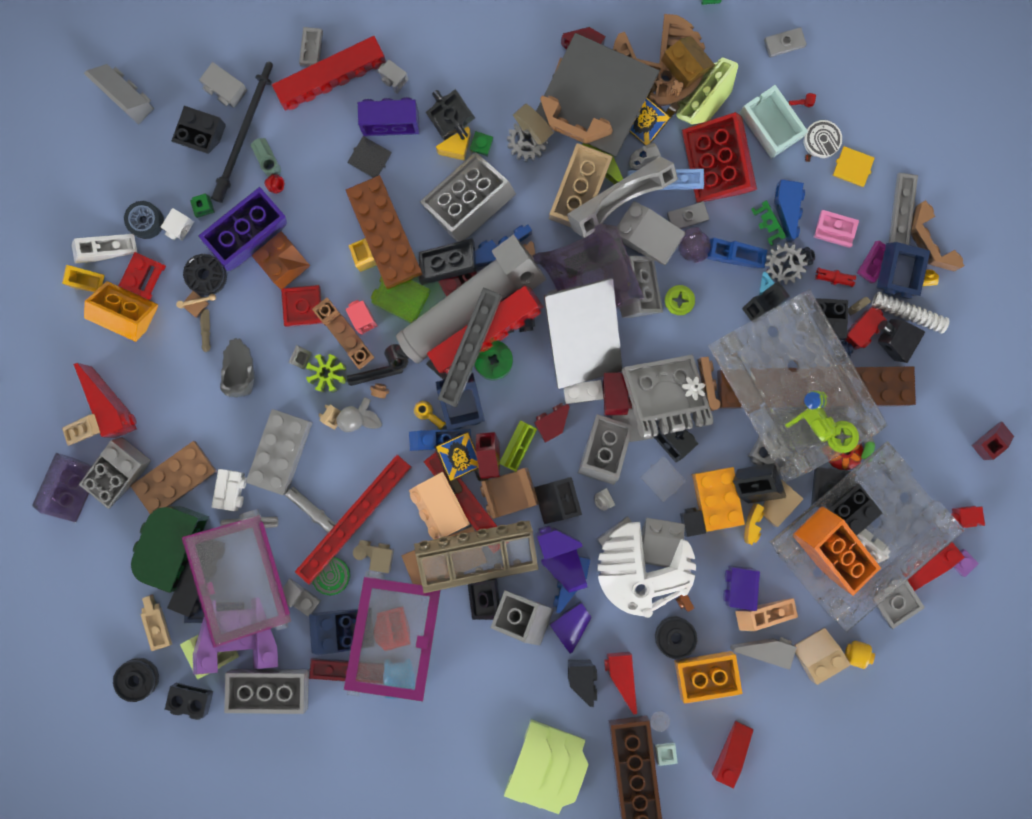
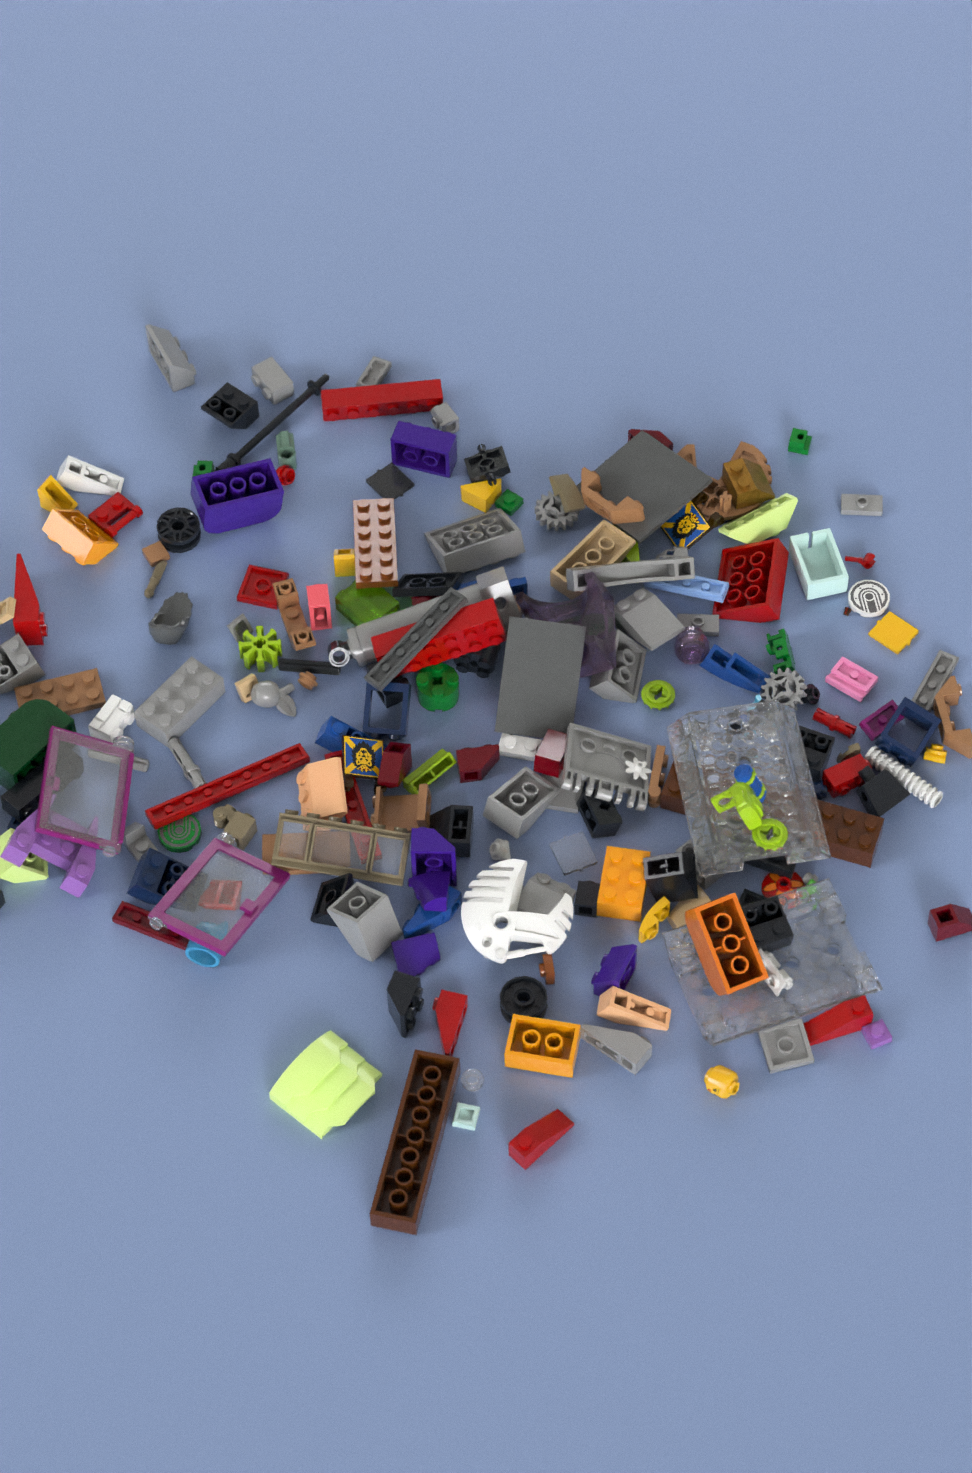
camera: 25 degrees right, 30 degrees down
(134, 221) = (140, 468): wheel -> none
(177, 225) = (171, 481): white brick -> none
(180, 304) = (142, 548): tan hinge -> none
(266, 691) = (64, 909): light grey brick -> none
(281, 260) = (260, 537): dark orange slope -> none
(428, 414) = (346, 713): yellow bar -> none
(788, 203) = (809, 639): blue slope -> none
(821, 656) = (678, 1073): tan slope -> none
(969, 516) = (896, 985): red window -> none

